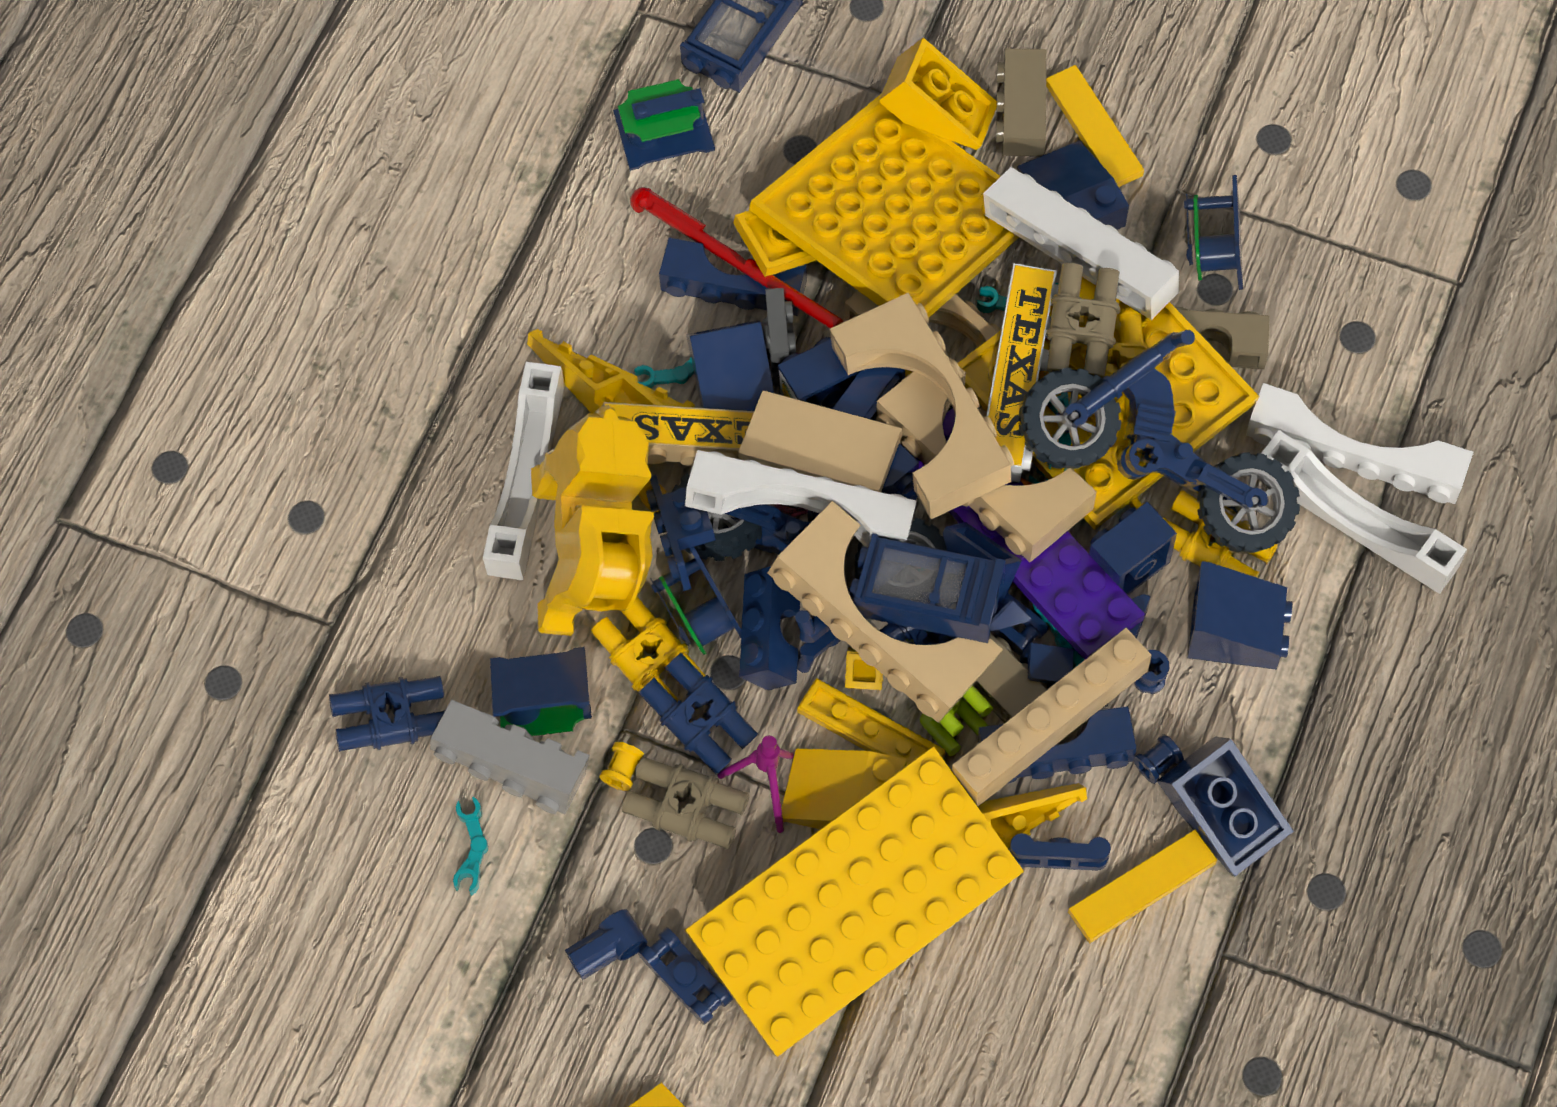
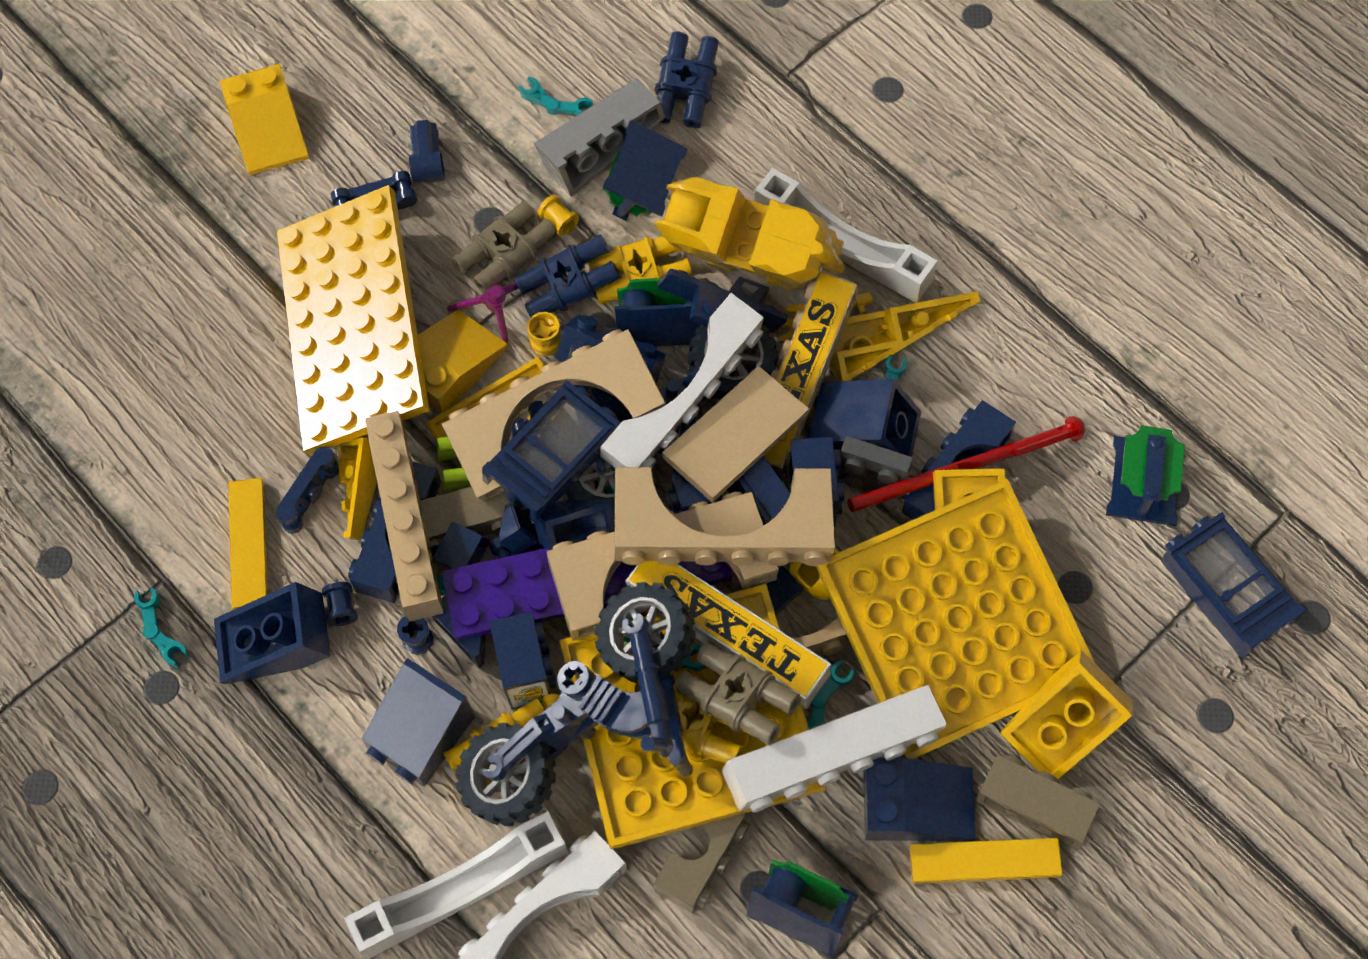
camera: 115 degrees right, 0 degrees up
(771, 702) = (544, 326): none -> yellow wheel
(1280, 928) = (152, 632): none -> teal piece

